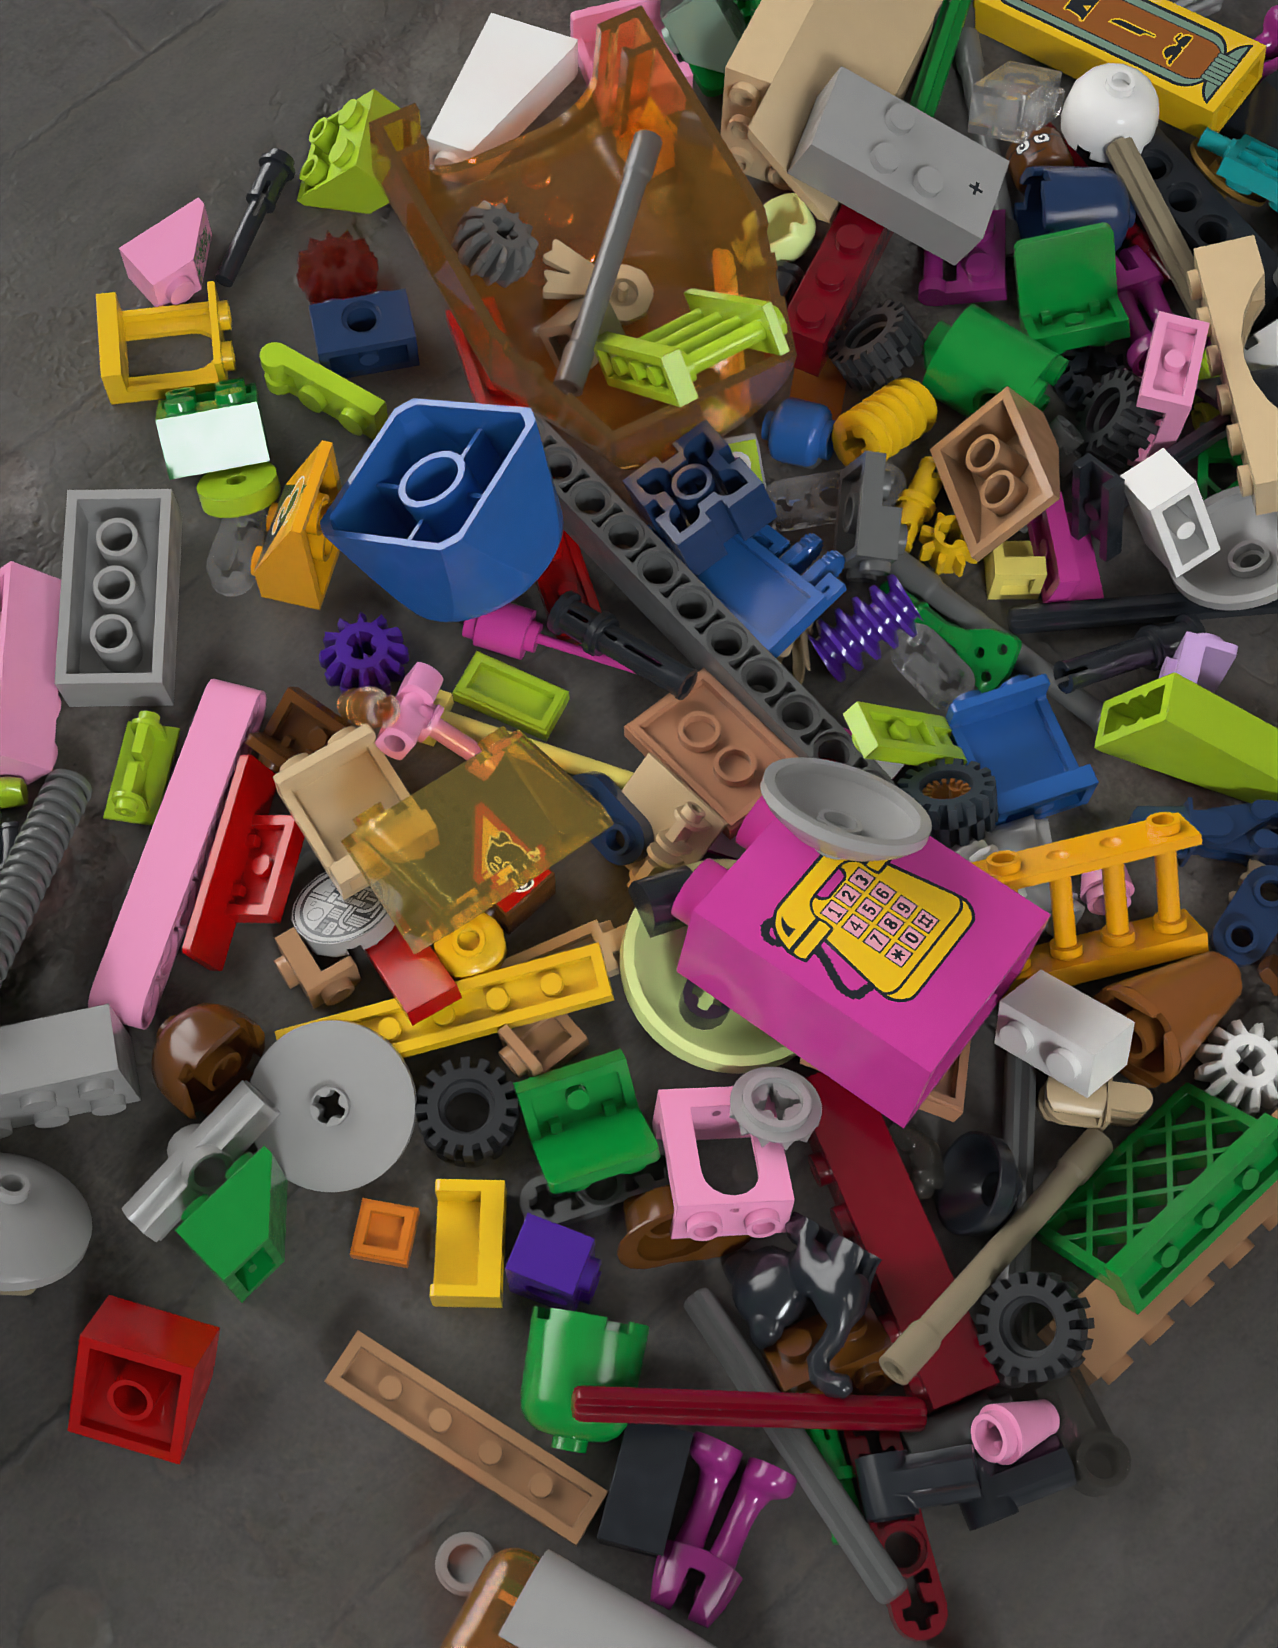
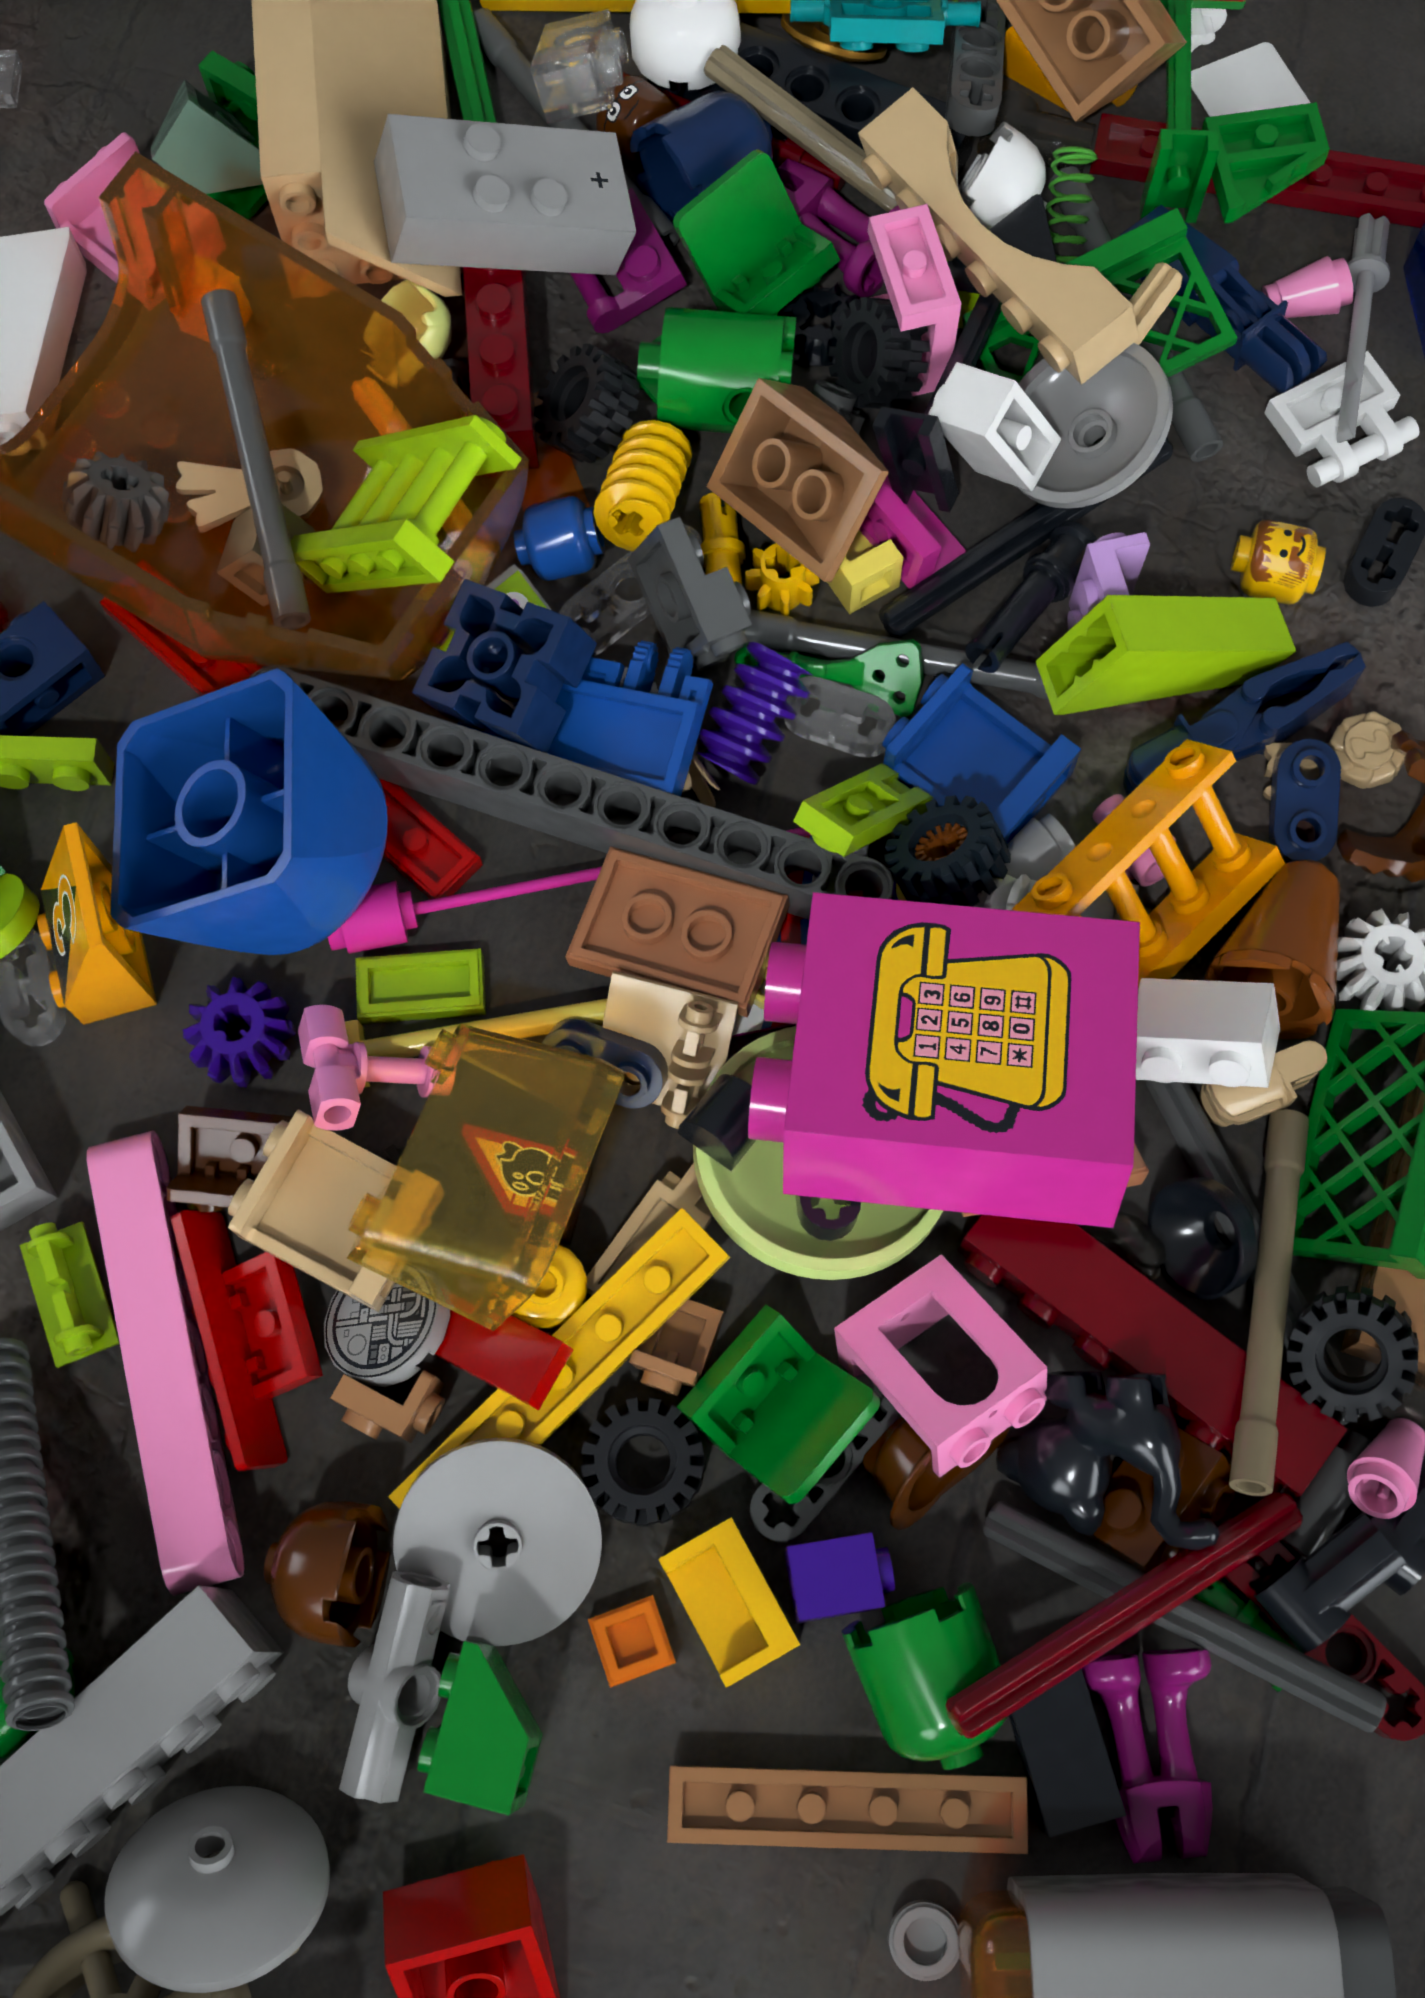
camera: 25 degrees left, 5 degrees up
(369, 706) = (285, 1090): clear orange pin -> none
(602, 635) = (485, 870): black pin -> none
(788, 1092) = (966, 1252): light grey gear -> none
(844, 810) = (879, 931): light grey dish -> none

